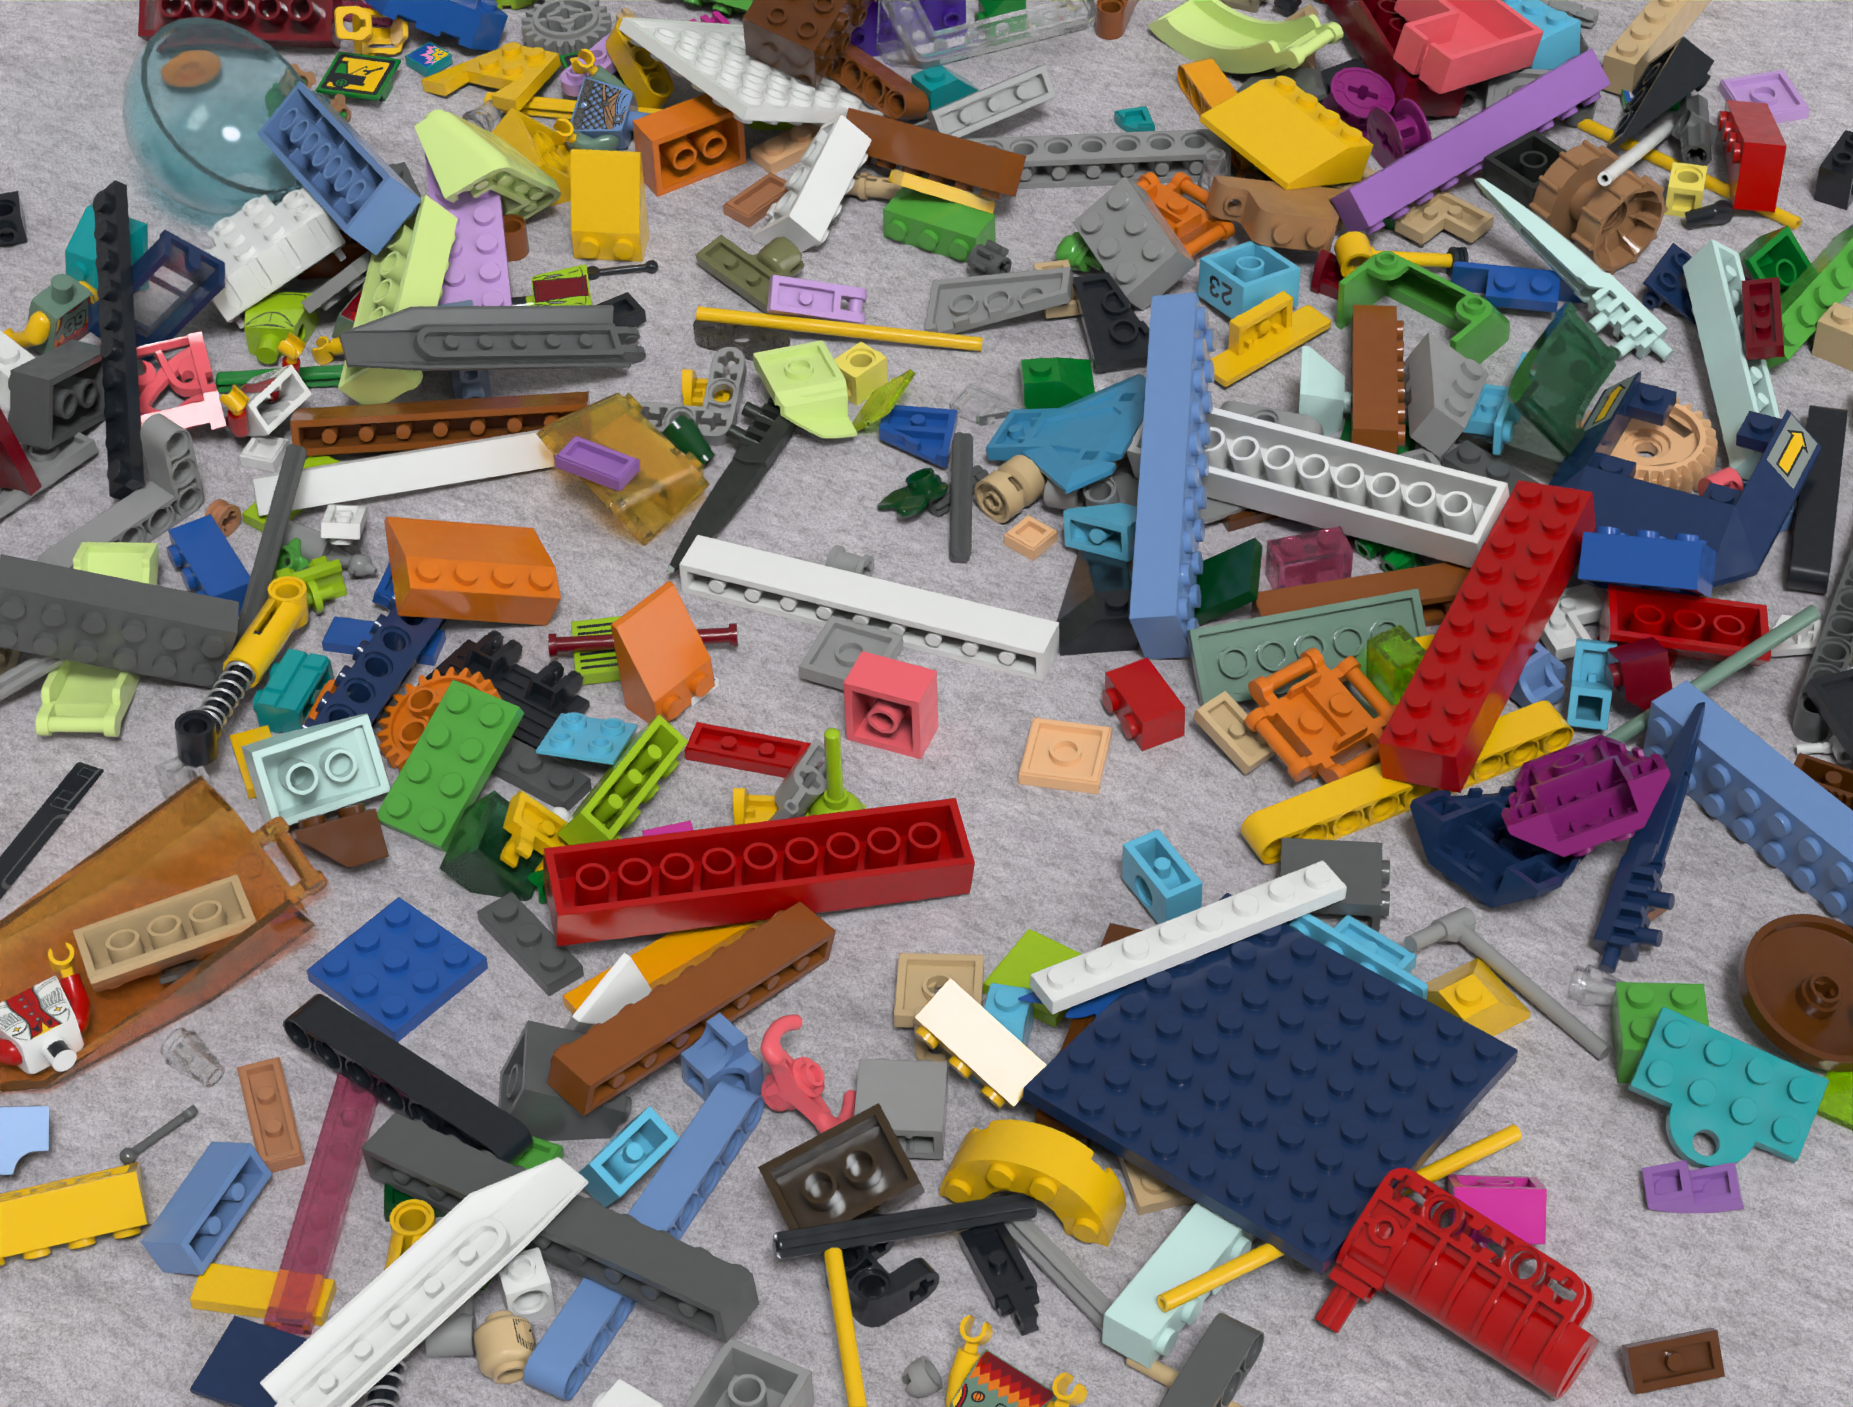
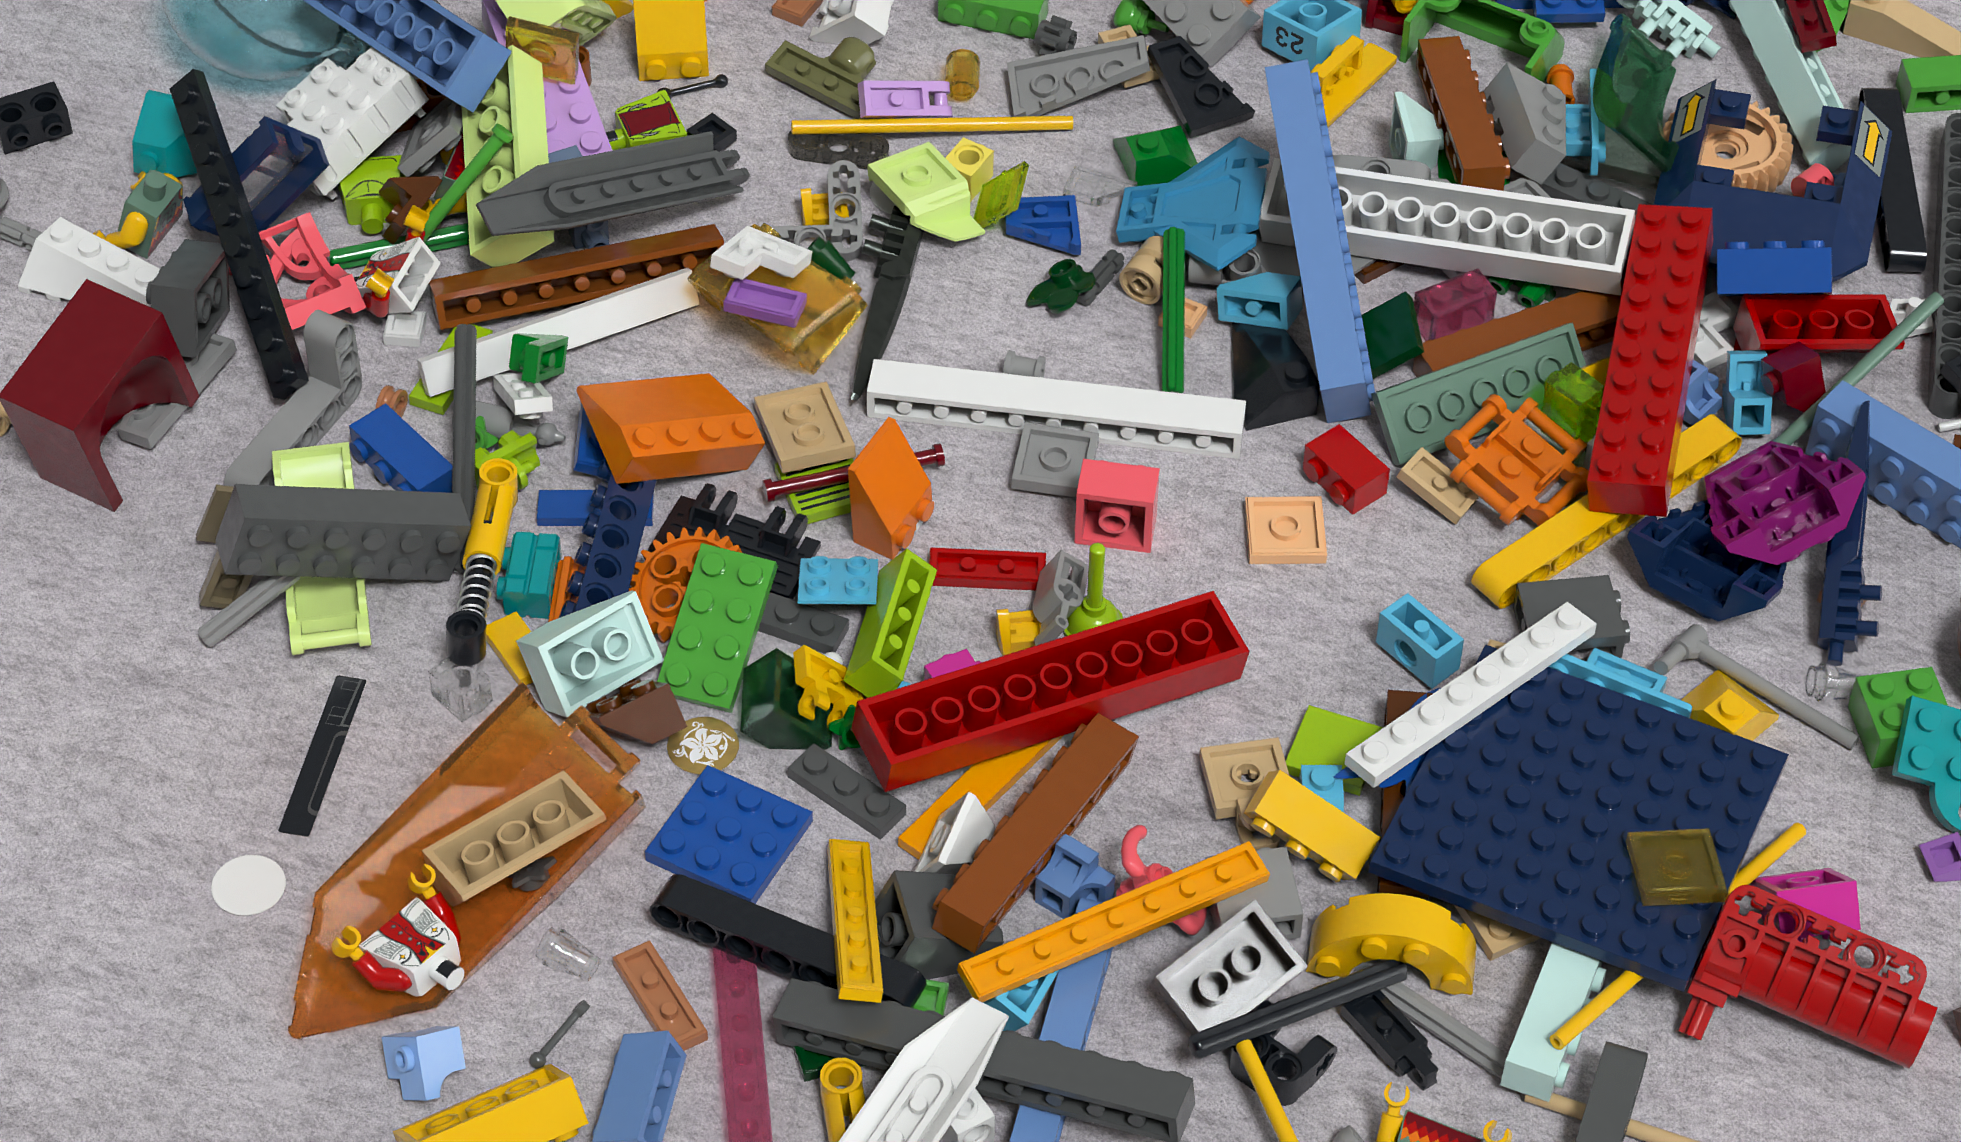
camera: 15 degrees left, 5 degrees up
(306, 325) = (404, 193): none -> reddish brown slope
(349, 319) = (467, 177): none -> bright green bar
(375, 491) = (538, 356): none -> green slope
(406, 875) = (703, 744): none -> pearl gold sticker
(465, 201) = (551, 46): none -> clear yellow tile
(477, 1067) = (854, 921): none -> yellow tile
(606, 412) = (756, 248): none -> white plate
(606, 588) = (804, 427): none -> tan plate
(736, 1107) = (1112, 922): none -> light orange tile
(885, 286) = (963, 73): none -> clear yellow brick
(961, 497) = (1109, 285): dark grey axle -> none
(1015, 527) = (1173, 310): none -> green axle
(1347, 1142) = (1676, 867): none -> clear yellow tile
(1495, 362) = (1562, 77): none -> orange pin

